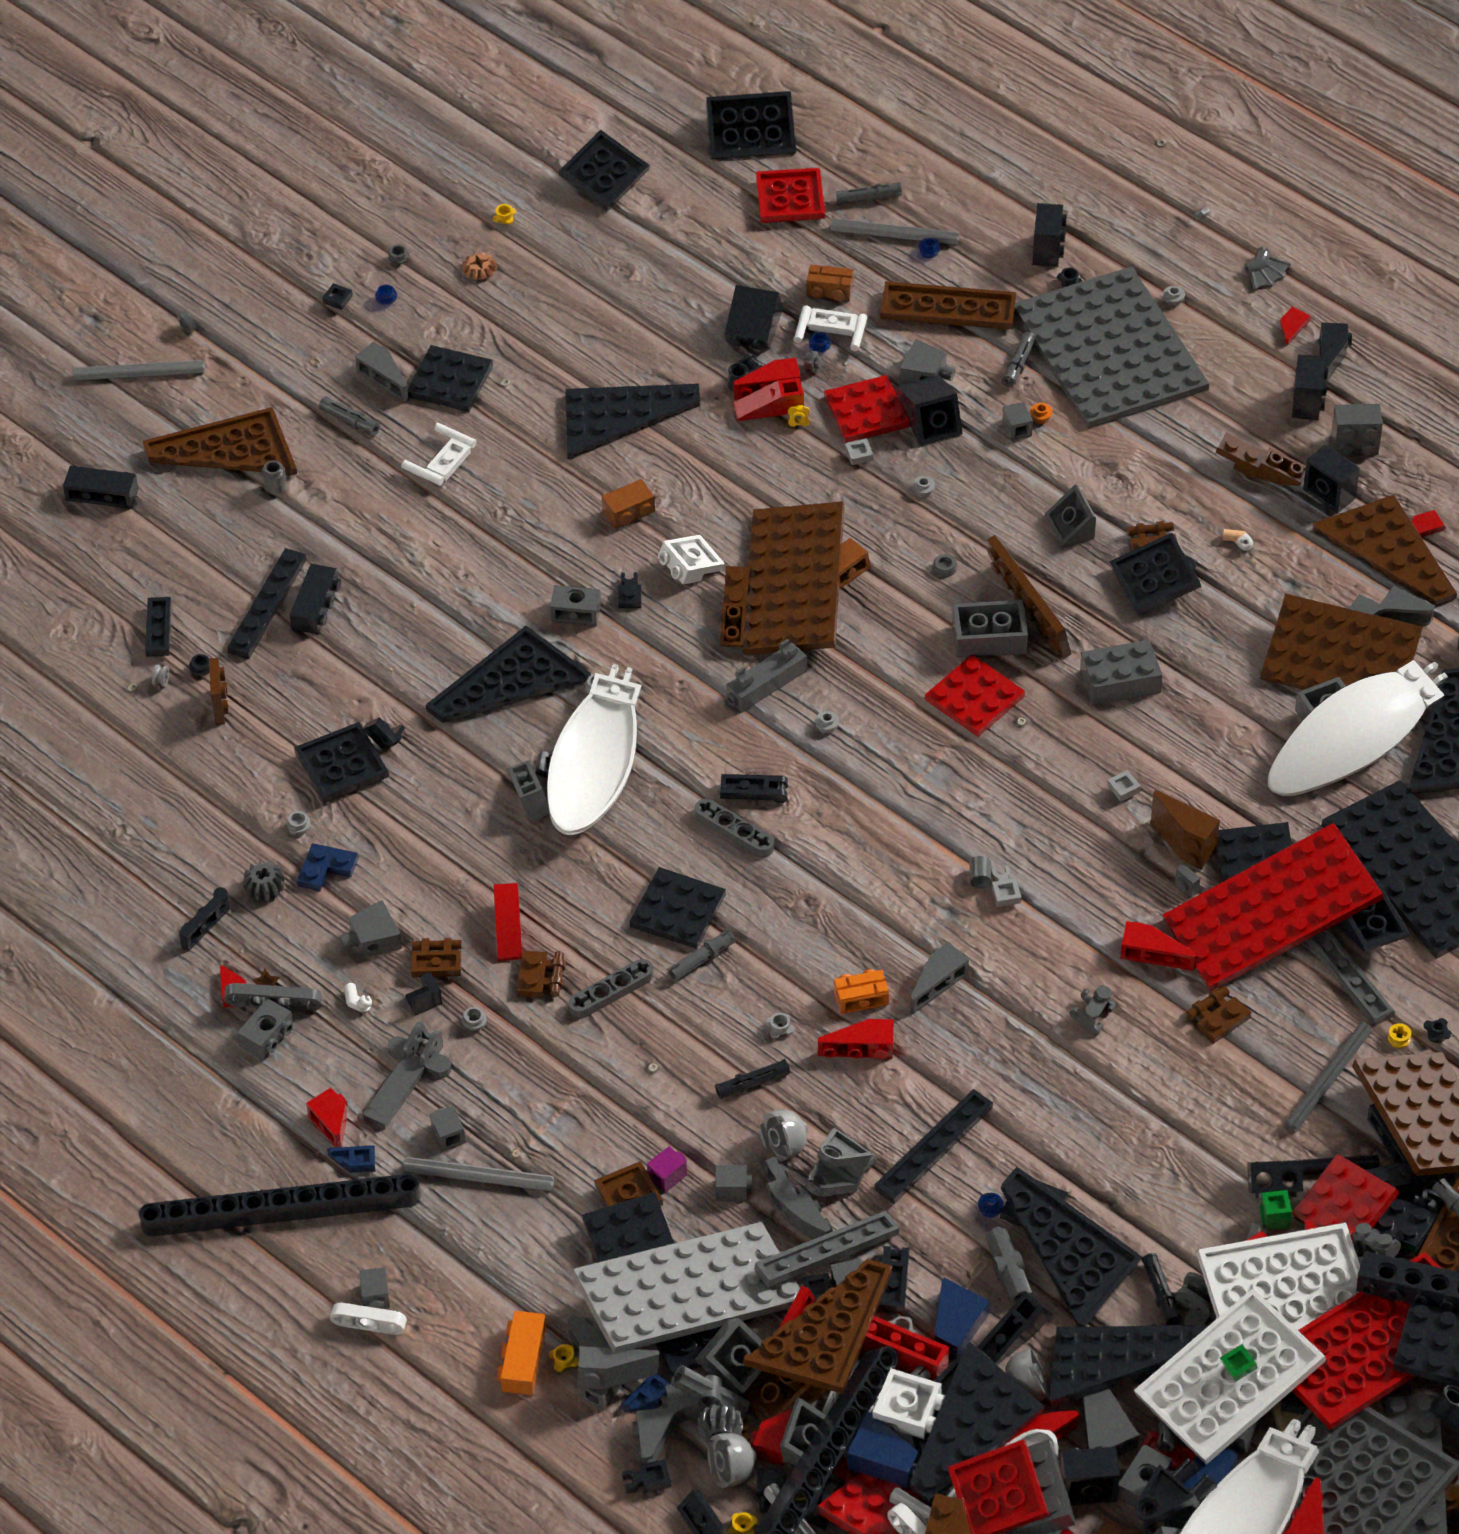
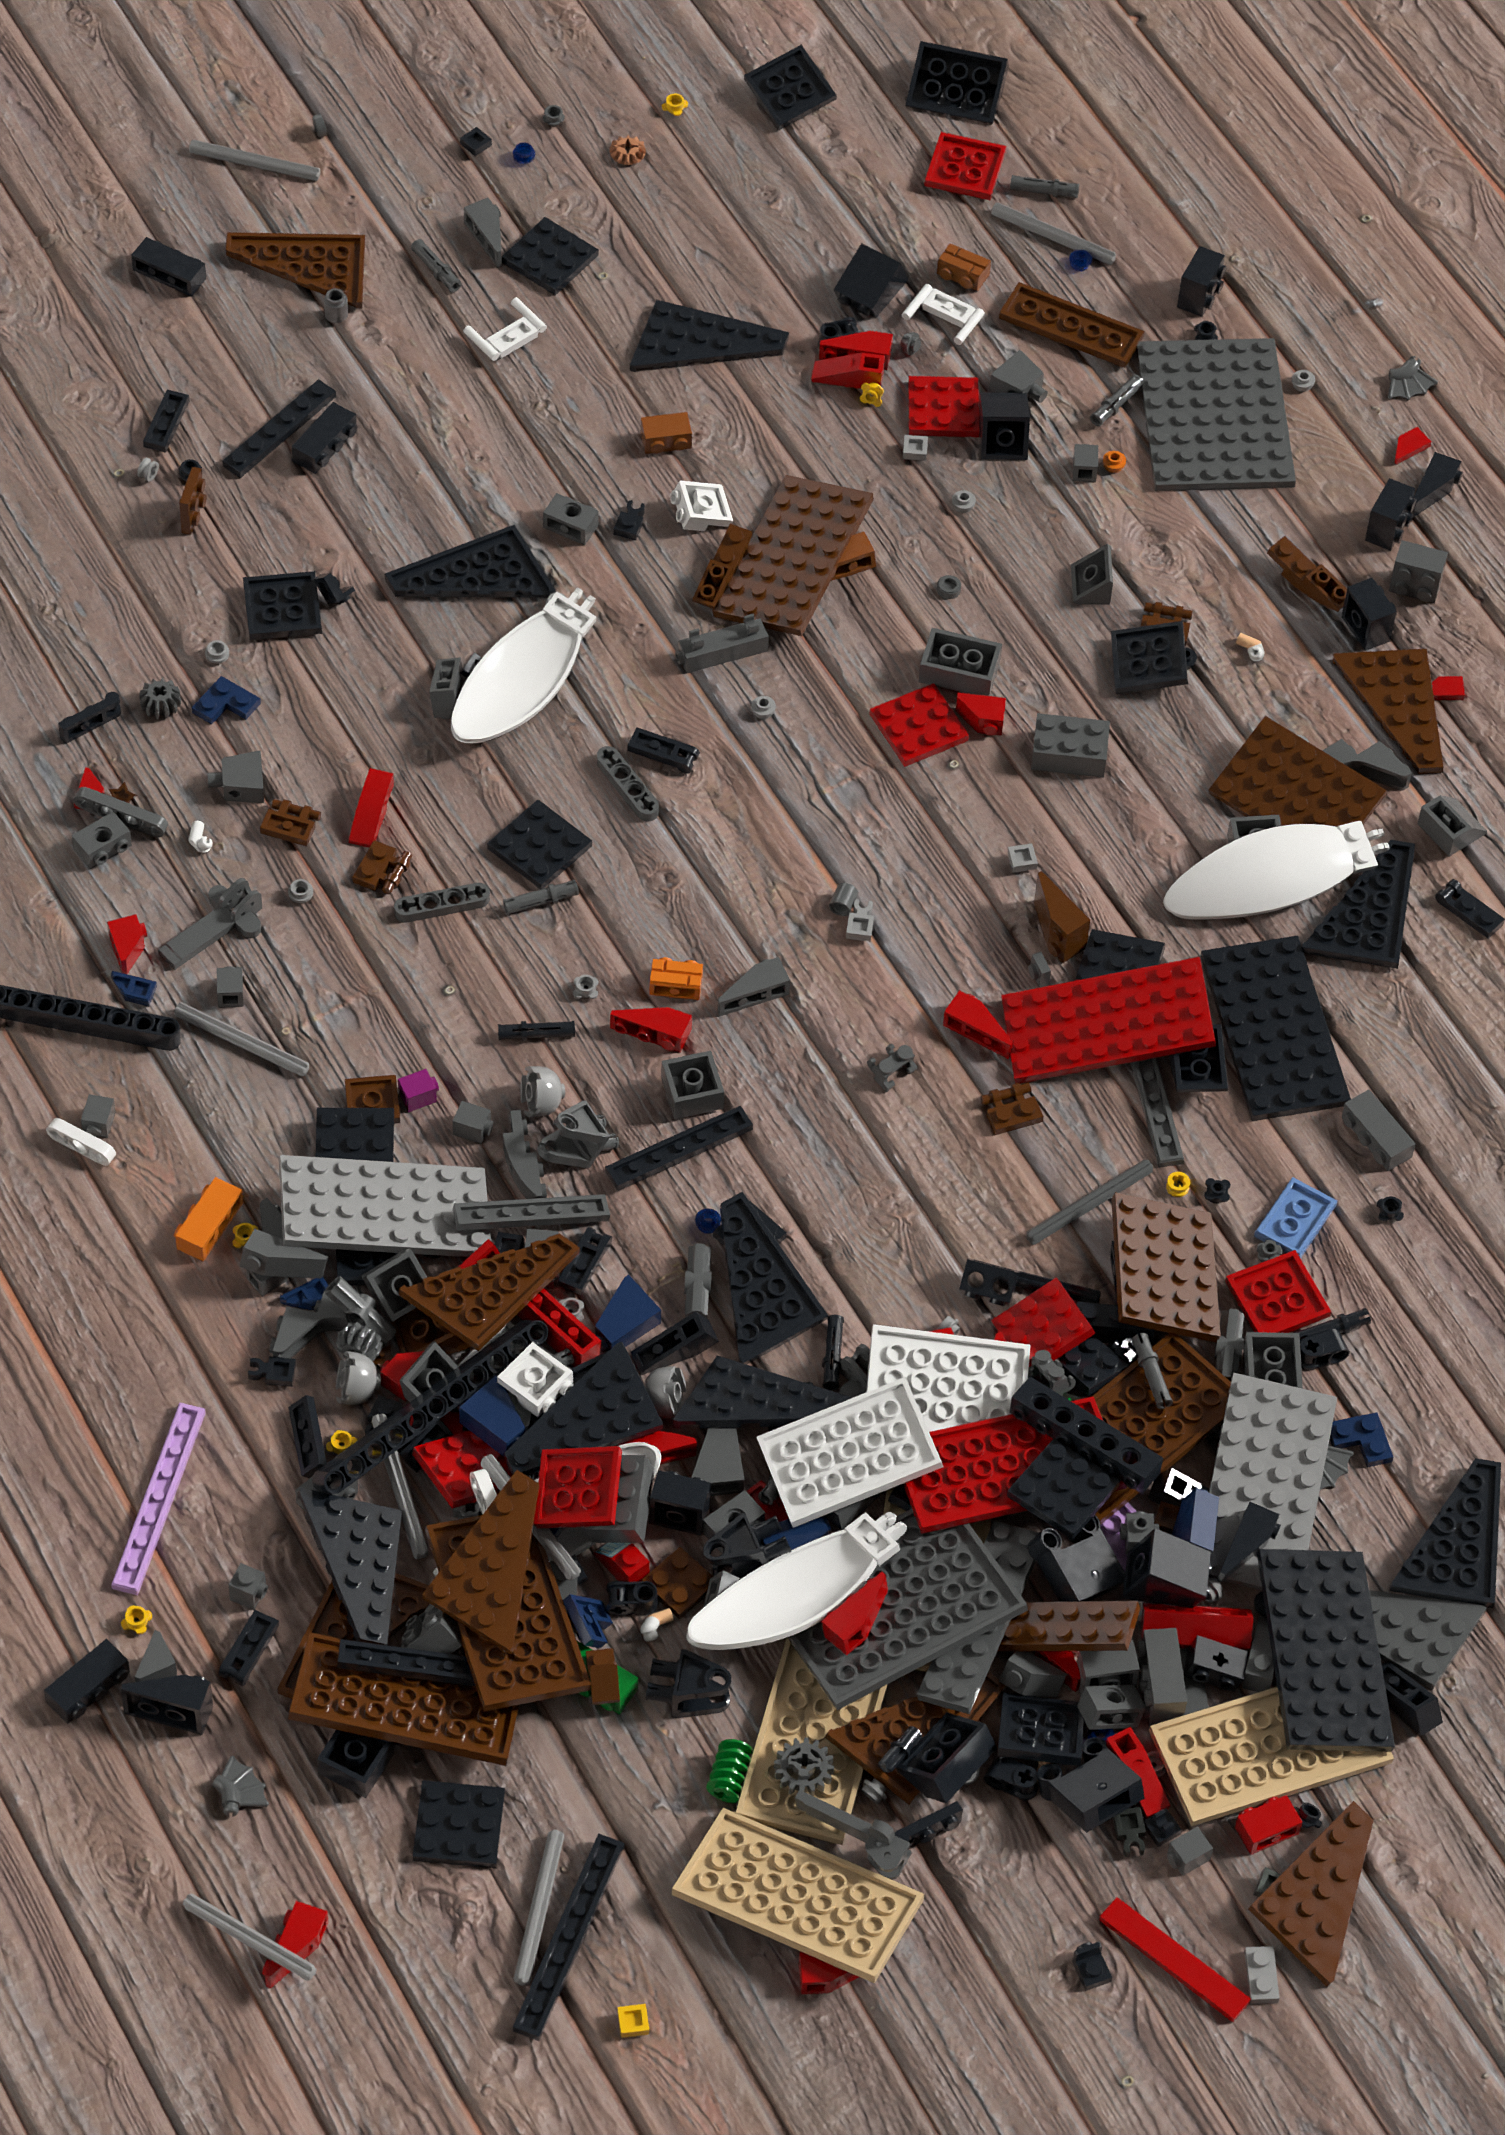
camera: 15 degrees right, 5 degrees up
(425, 997) = (263, 857): black panel -> none
(819, 342) = (927, 325): clear blue plate -> none
(922, 1083) = (692, 1084): none -> dark grey brick
(1023, 590) = (1010, 643): reddish brown plate -> none
(1028, 667) = (982, 712): none -> red slope
(1238, 1363) = (858, 1442): green plate -> none
(1275, 1210) = (974, 1312): green brick -> none

